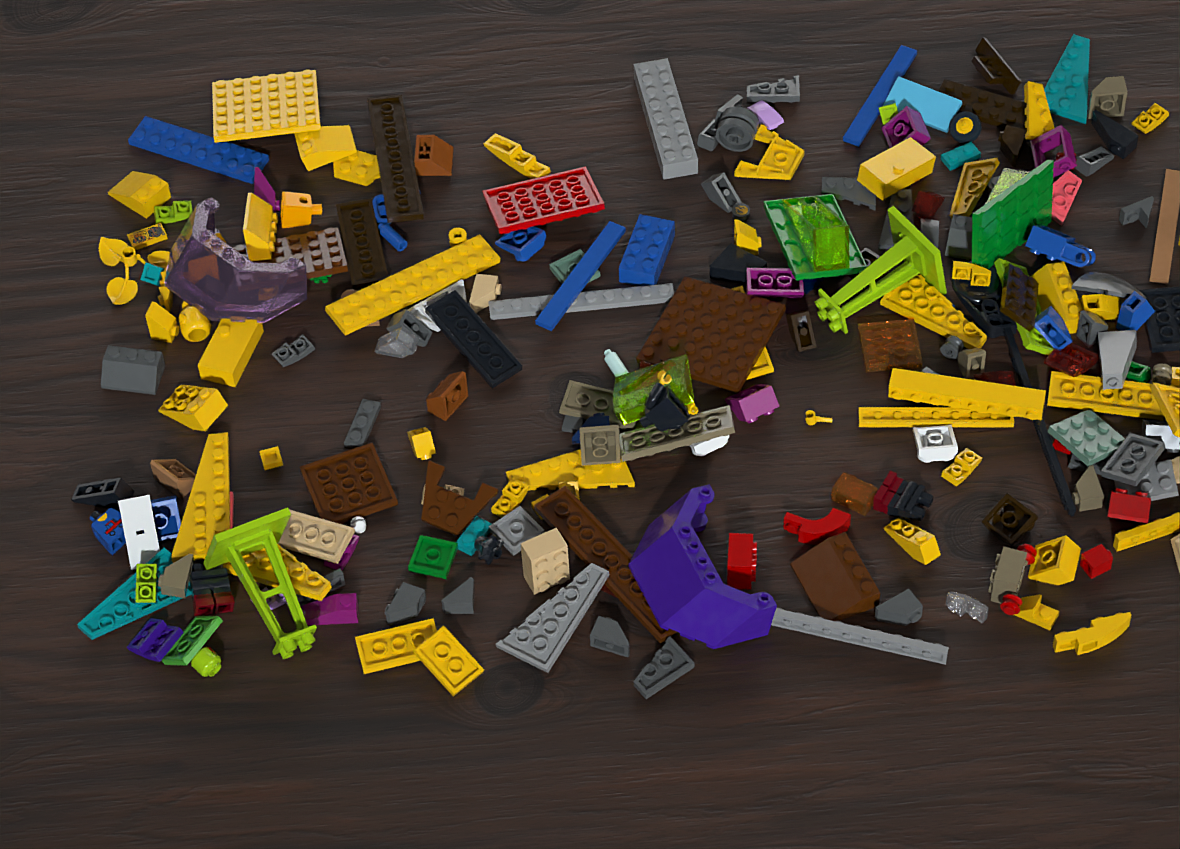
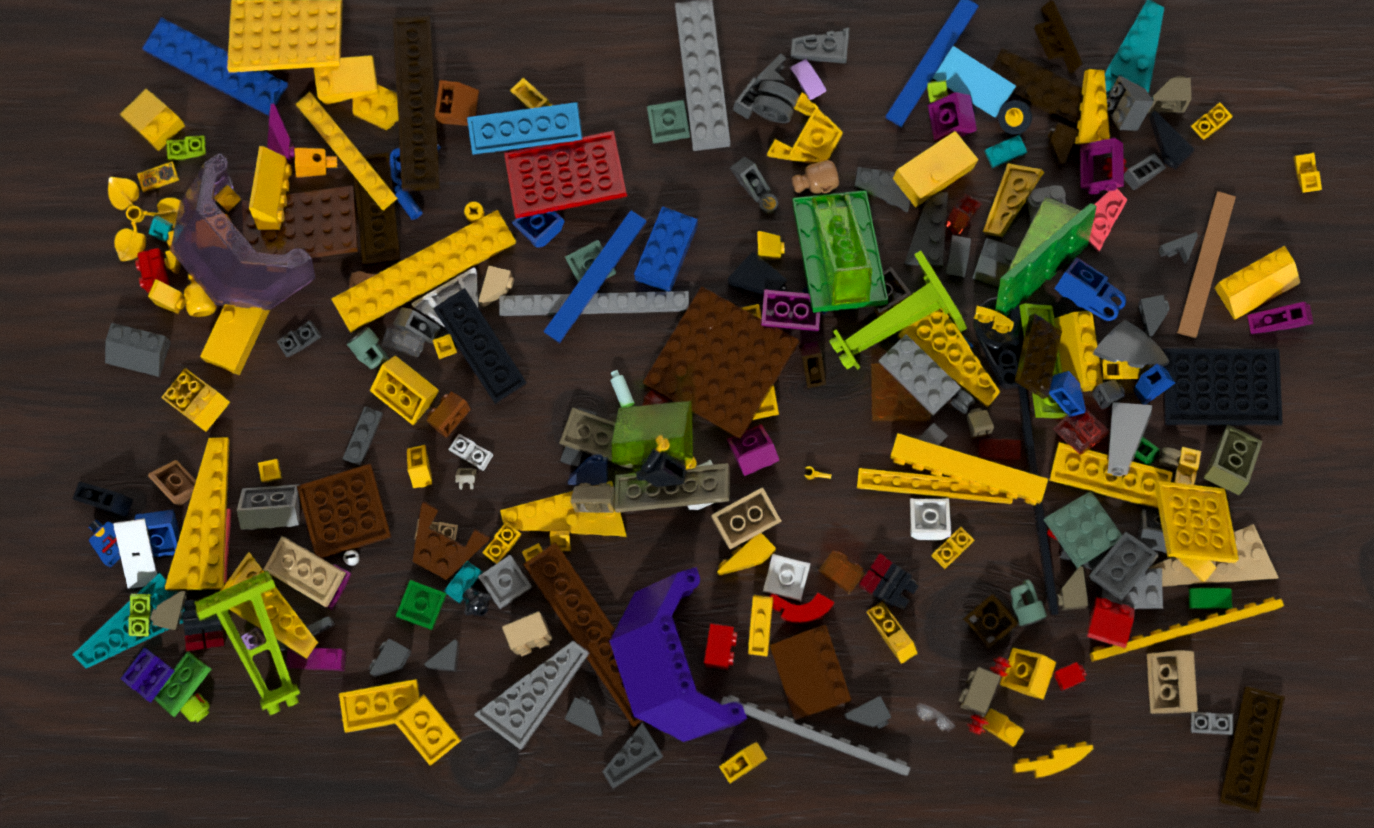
camera: 10 degrees right, 25 degrees up
(141, 302) = (152, 267): none -> red brick
(273, 488) = (269, 507): none -> light grey slope
(331, 199) = (346, 151): none -> yellow plate
(356, 344) = (362, 342): none -> sand green piece
(400, 381) = (403, 389): none -> yellow slope
(438, 344) = (444, 346): none -> yellow plate
(469, 428) = (471, 452): none -> white slope
(469, 445) = (466, 476): none -> dark tan tile
(501, 167) = (525, 128): none -> dark azure plate
(637, 156) = (668, 121): none -> sand green plate
(751, 451) = (745, 518): none -> tan slope
(761, 487) = (752, 554): none -> yellow slope
(777, 661) = (743, 762): none -> yellow slope
(779, 543) = (760, 625): none -> yellow tile
(785, 185) = (818, 177): none -> medium nougat piece
(799, 502) = (786, 577): none -> white tile
(906, 327) = (919, 374): none -> light grey plate
(1048, 507) = (1030, 613): none -> sand green piece
(1069, 106) = (1128, 104): none -> dark grey slope
(1123, 262) = (1152, 313): none -> dark grey slope

